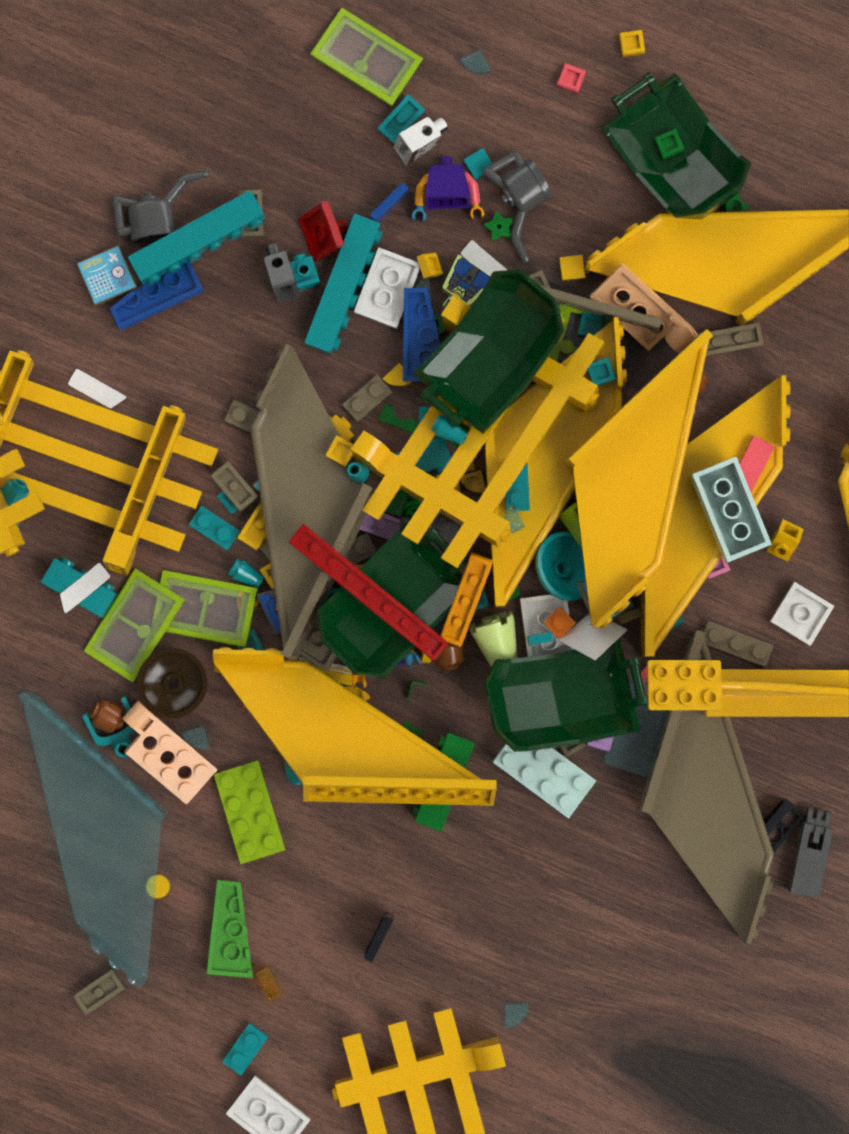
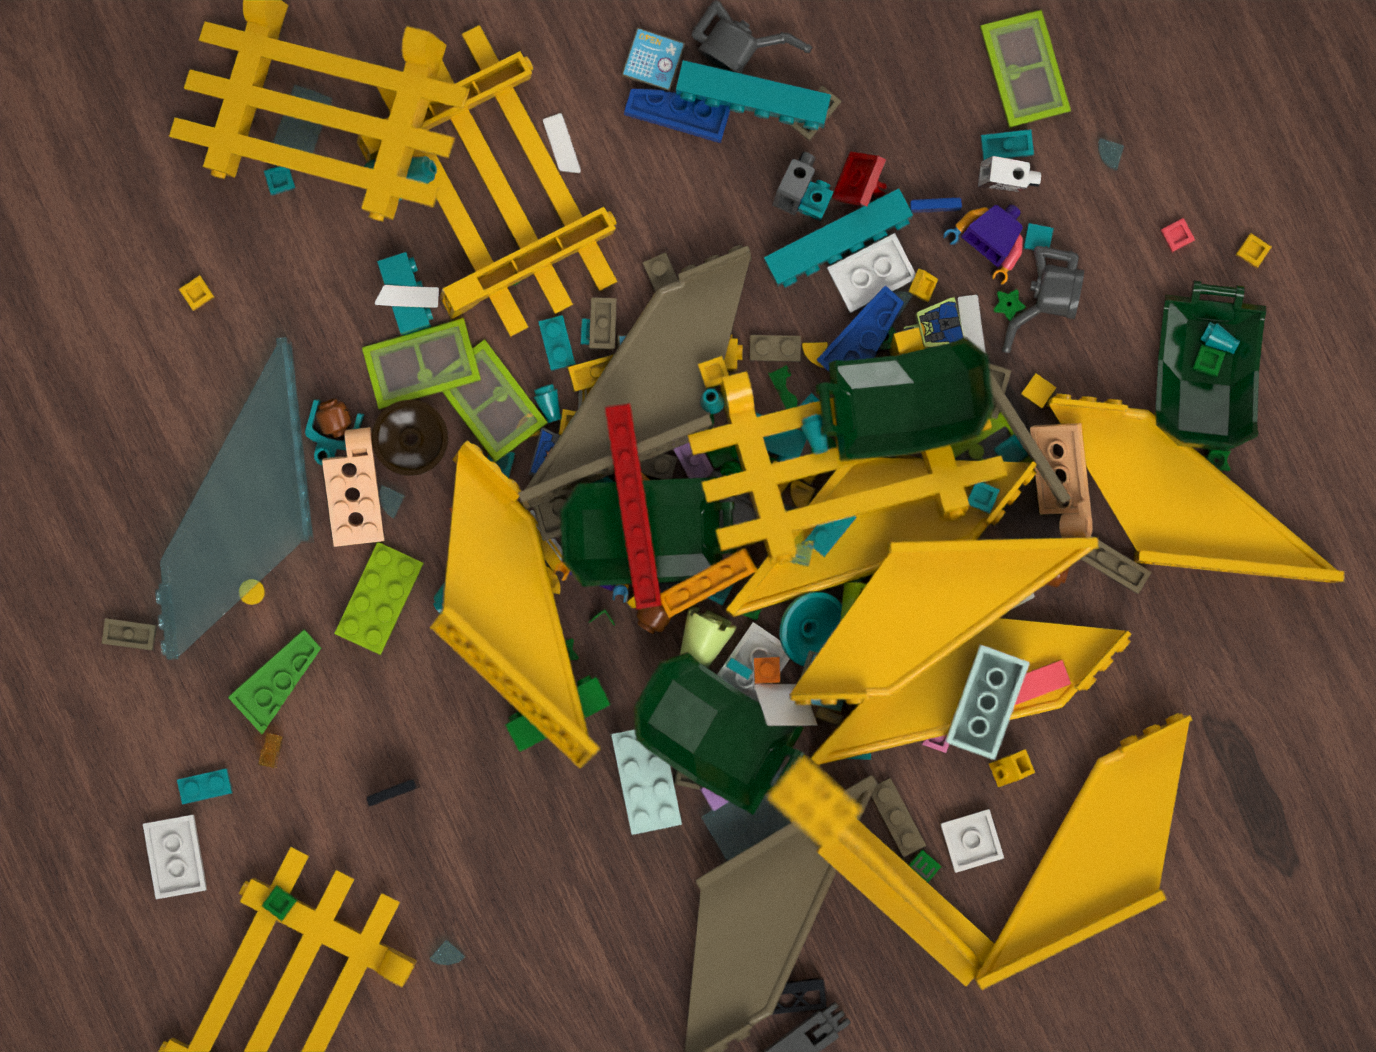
camera: 50 degrees right, 0 degrees up
(369, 1083) = (279, 903): none -> green tile
(663, 122) = (1219, 338): none -> teal cone
(785, 660) = (924, 866): none -> green tile

